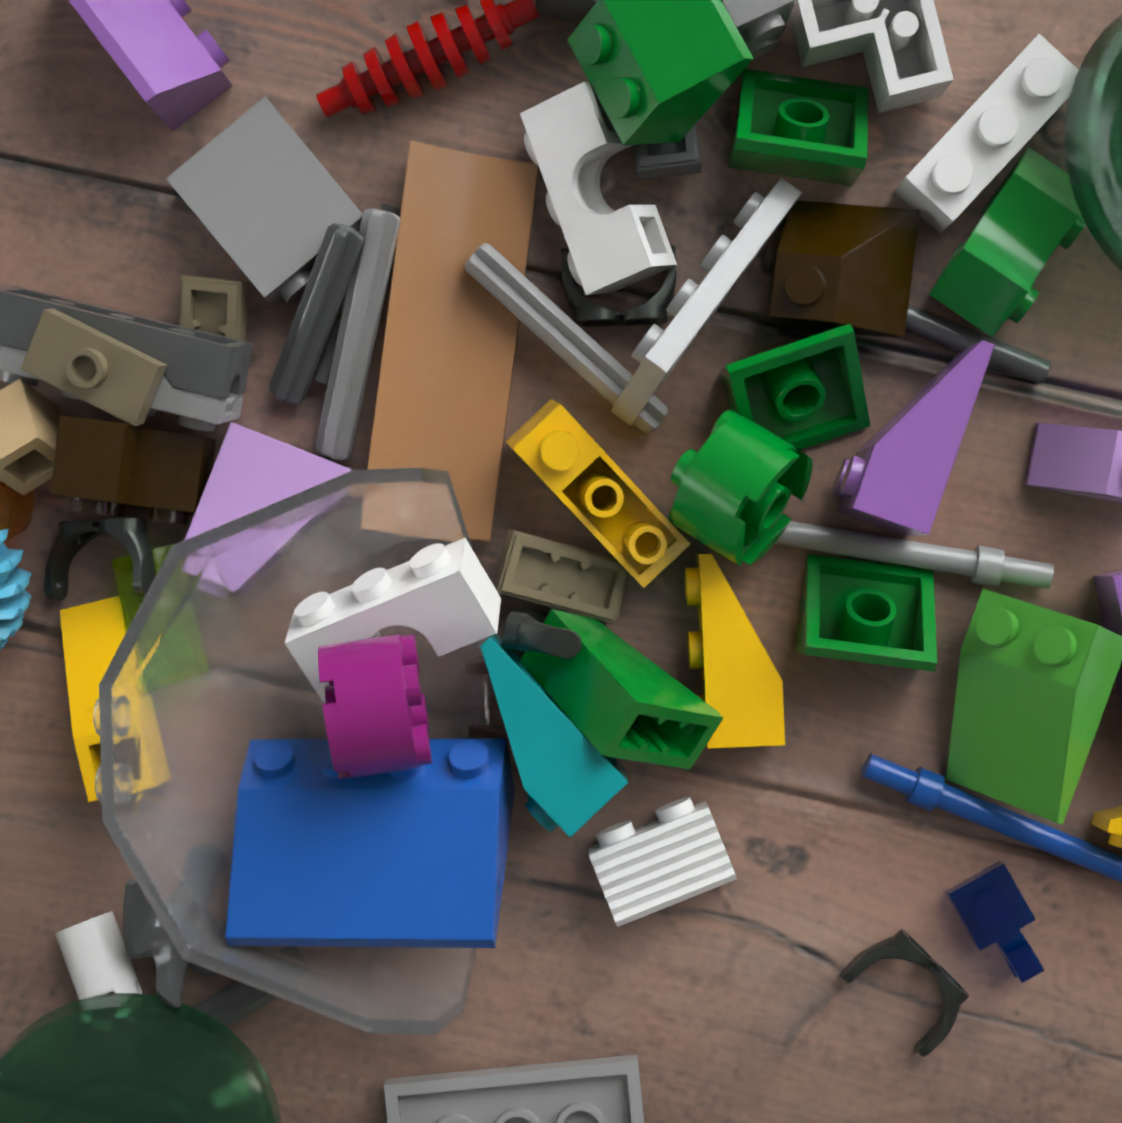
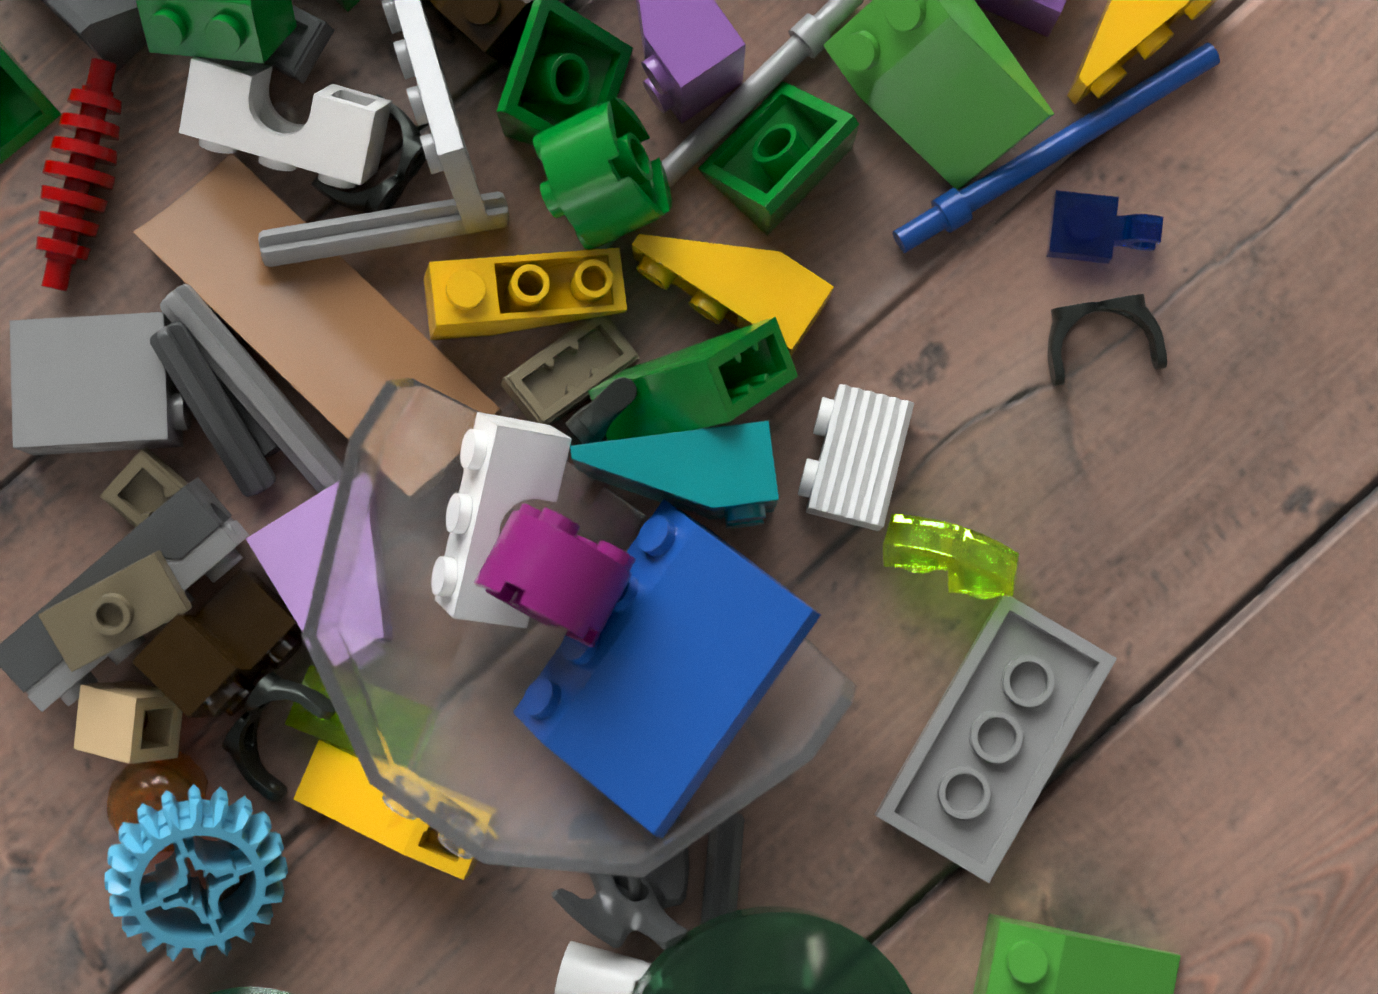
camera: 50 degrees left, 5 degrees down
(646, 1016) = (973, 560): none -> clear neon green slope

